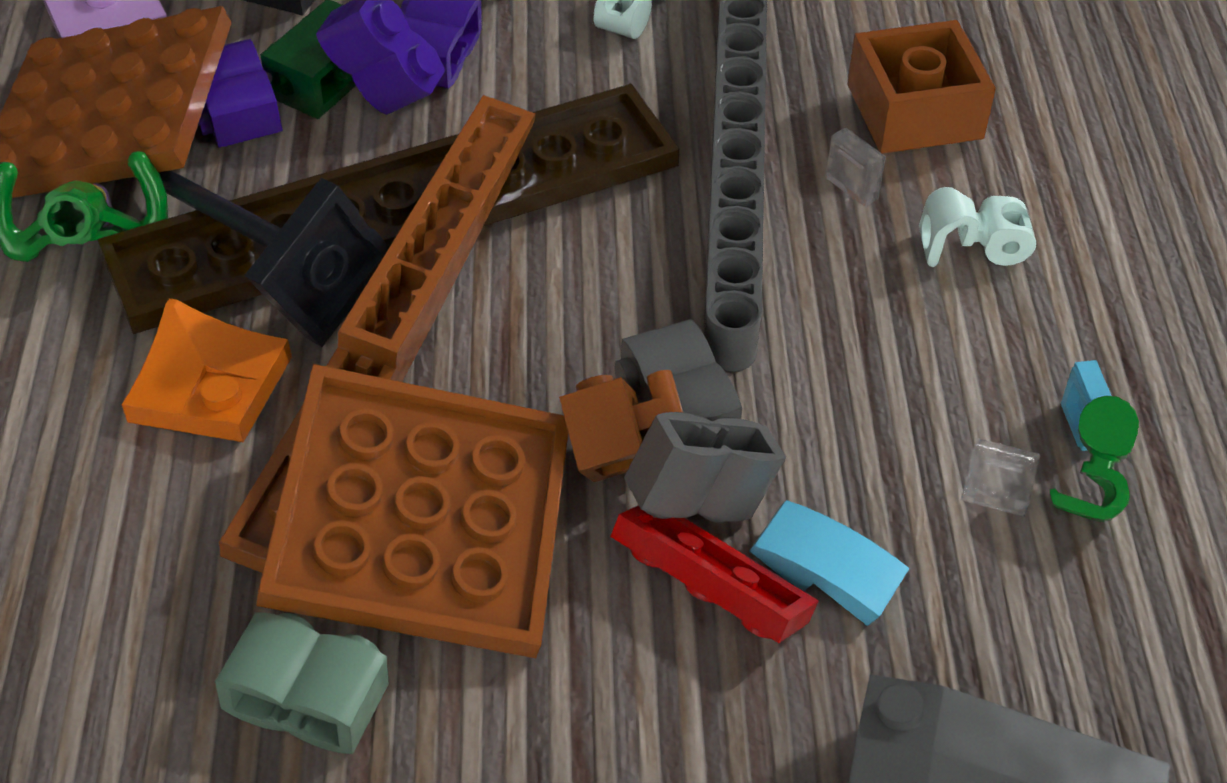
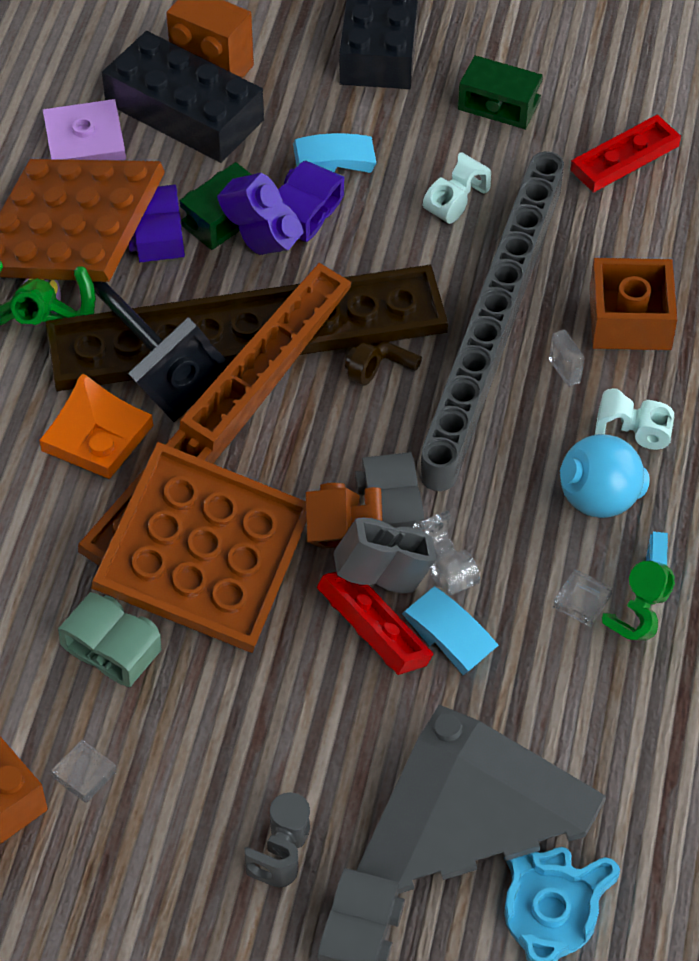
camera: 15 degrees right, 5 degrees up
(579, 214) = (365, 360): none -> dark brown plate
(810, 470) = (452, 569): none -> clear leg
(972, 302) = (603, 476): none -> medium azure brick

